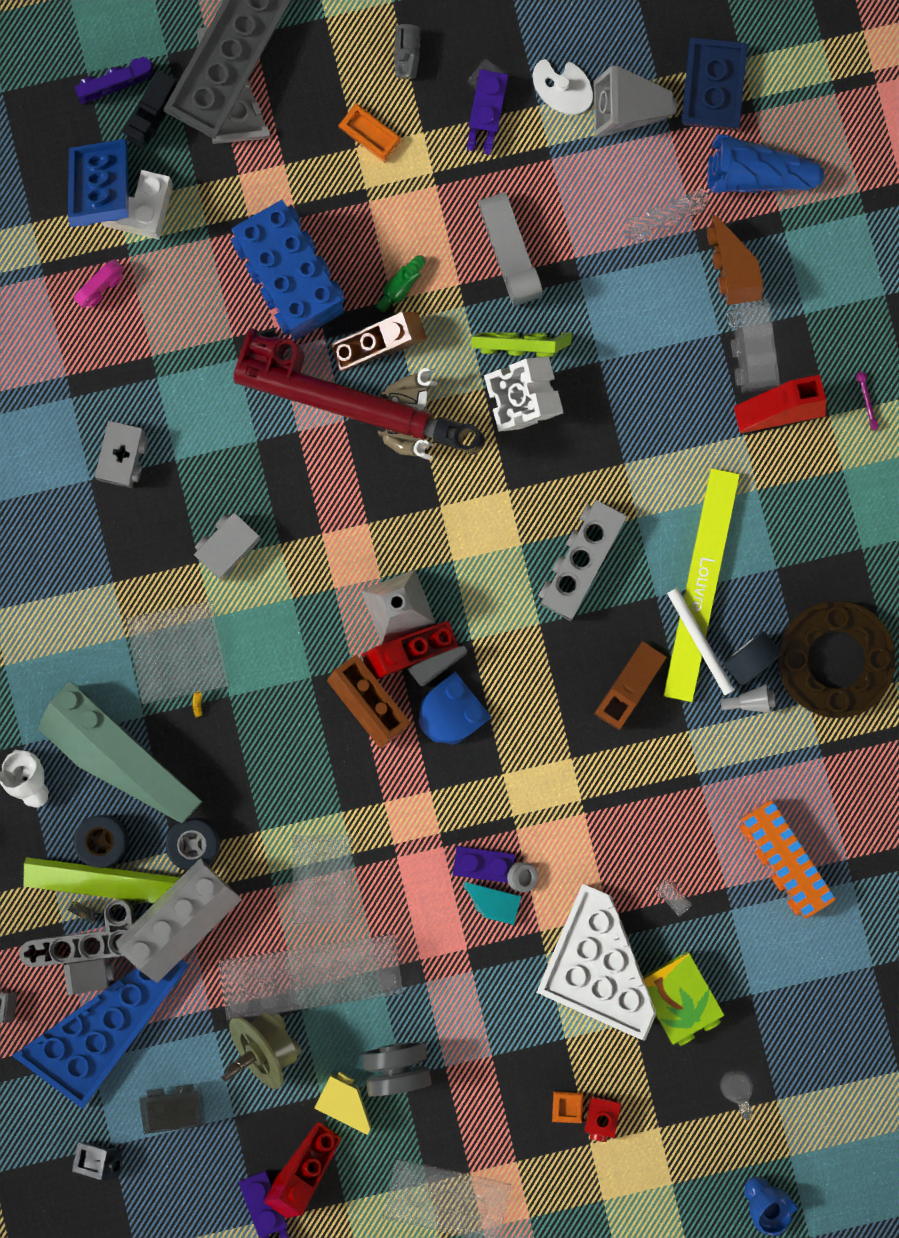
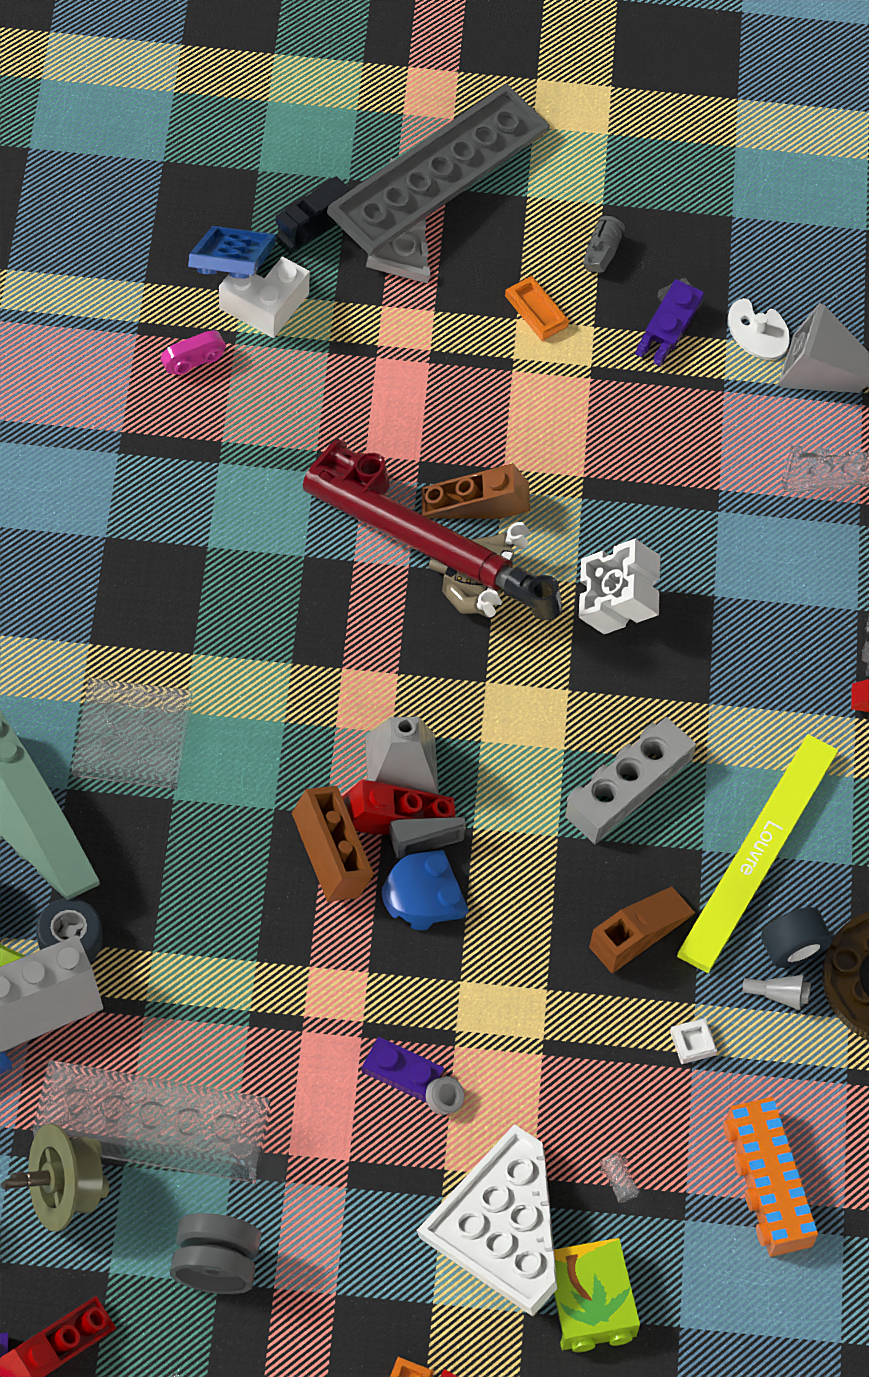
camera: 10 degrees right, 25 degrees down
(109, 466) = (150, 517): light grey brick -> none
(115, 80) = (283, 180): dark purple hinge -> none
(197, 698) = (133, 792): yellow leg -> none
(226, 546) = (232, 641): light grey brick -> none
(288, 270) = (404, 392): blue brick -> none
(322, 878) = (205, 1024): clear plate -> none
(344, 1102) = (134, 1280): light yellow slope -> none
(401, 283) = (522, 451): green piece -> none
(494, 903) = (400, 1113): teal slope -> none
(506, 240) = (650, 455): light grey beam -> none
(537, 342) = (612, 534): lime wing -> none
(696, 764) = (693, 1041): none -> white tile
(700, 641) = (740, 905): white bar -> none

